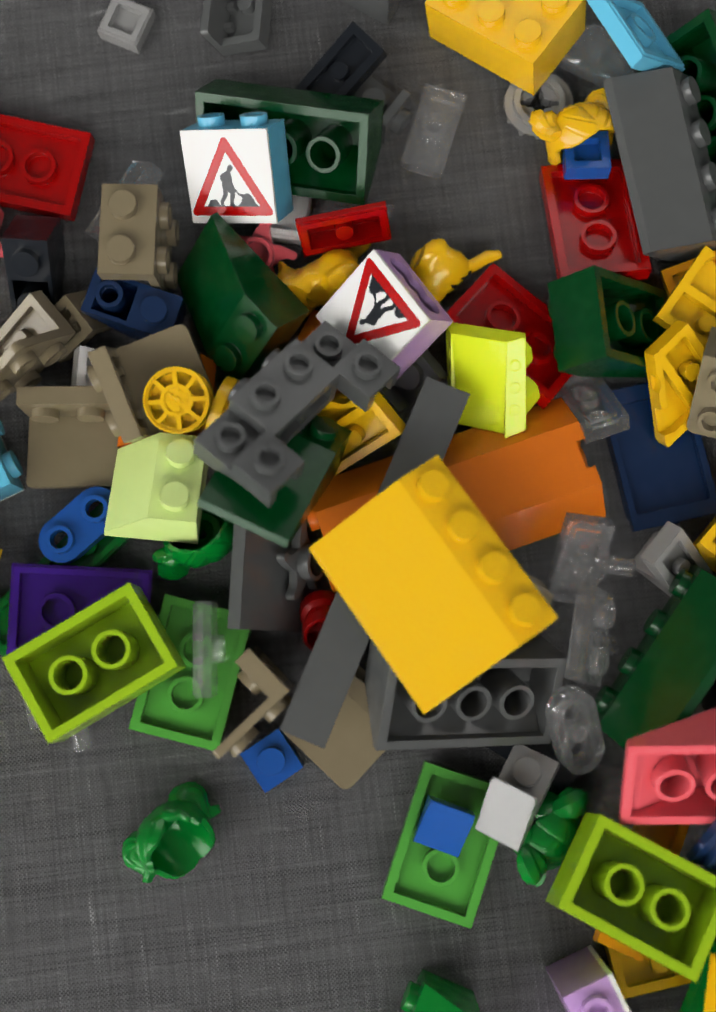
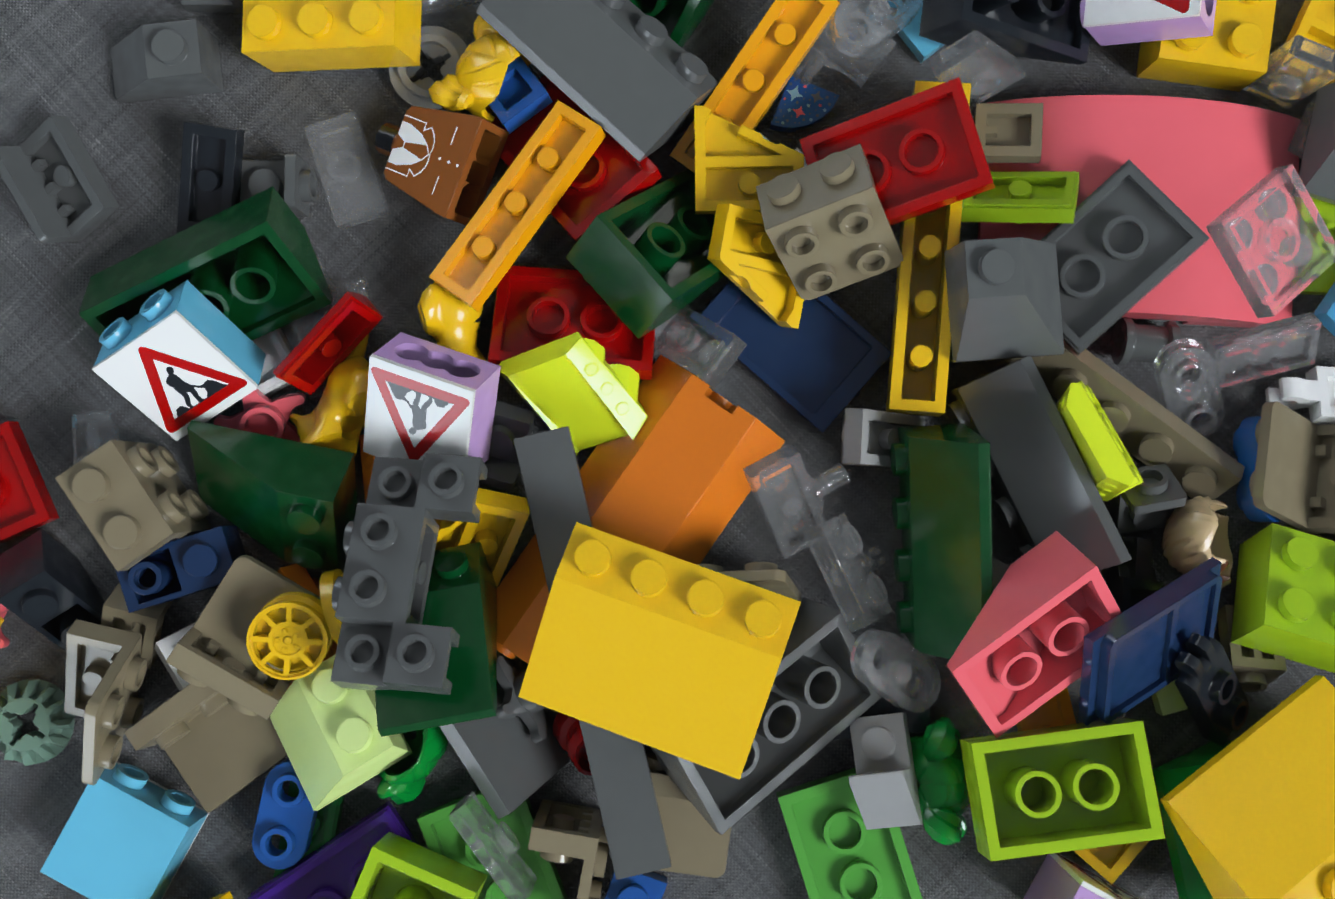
camera: 30 degrees left, 5 degrees up
(444, 826) = (836, 846): blue slope -> none
(507, 164) = (442, 159): none -> dark orange torso
(538, 227) = (518, 205): none -> light orange plate

